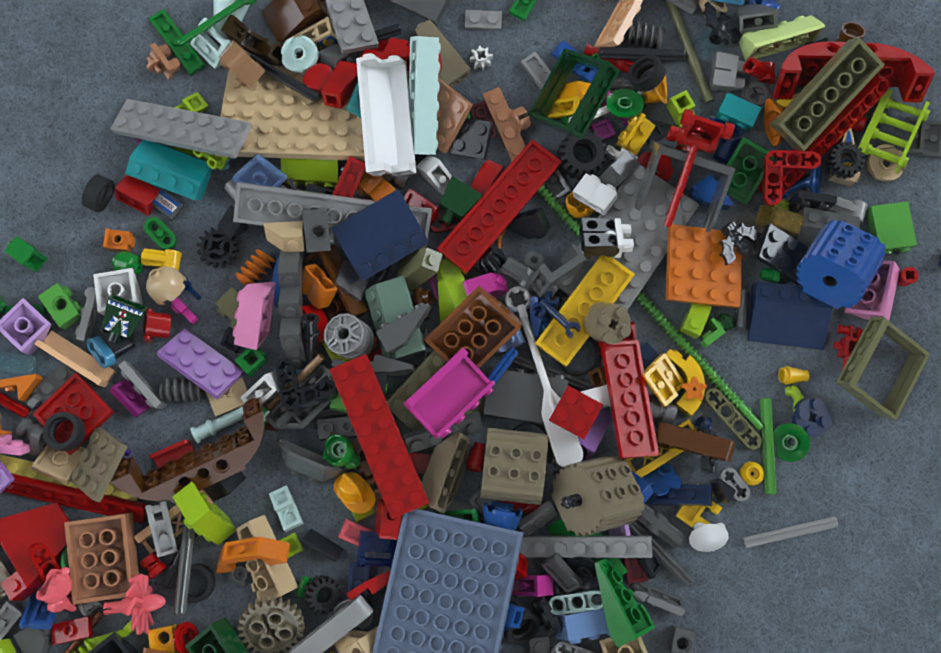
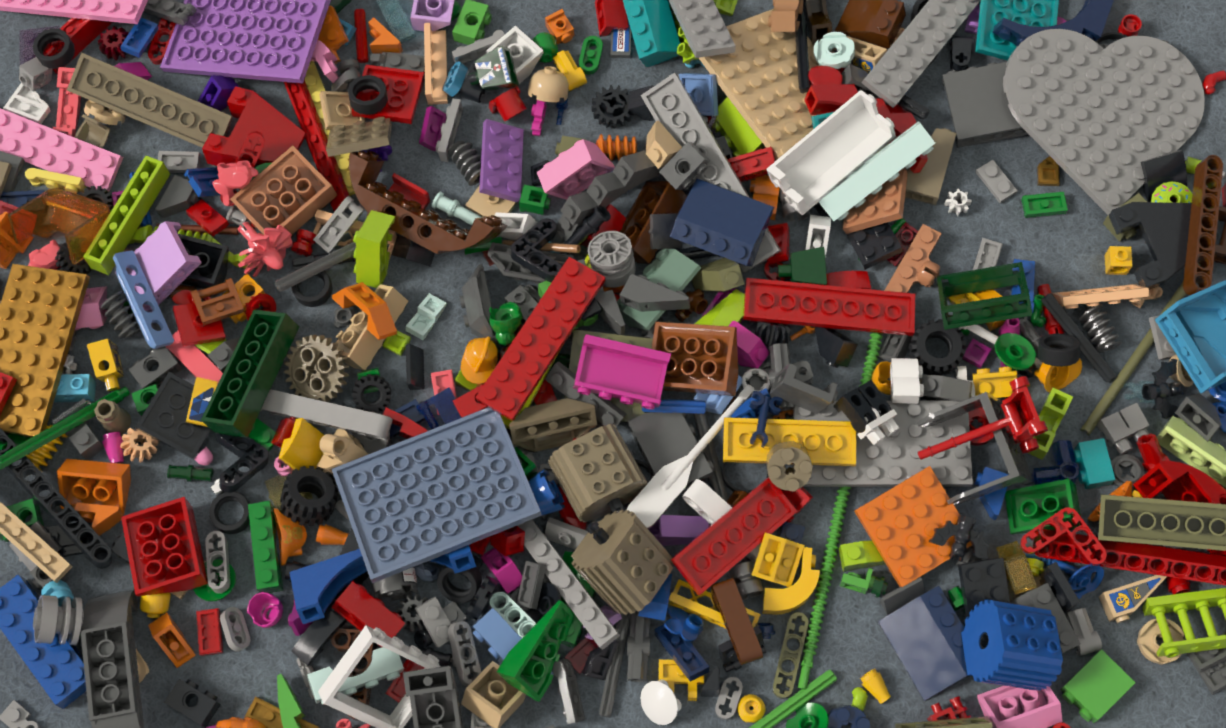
camera: 65 degrees right, 10 degrees down
(317, 286) = (638, 204): orange brick -> none
(576, 412) = (684, 492): red plate -> none
(689, 389) = (793, 588): orange plate -> none
(852, 152) = (1125, 604): black tyre -> none

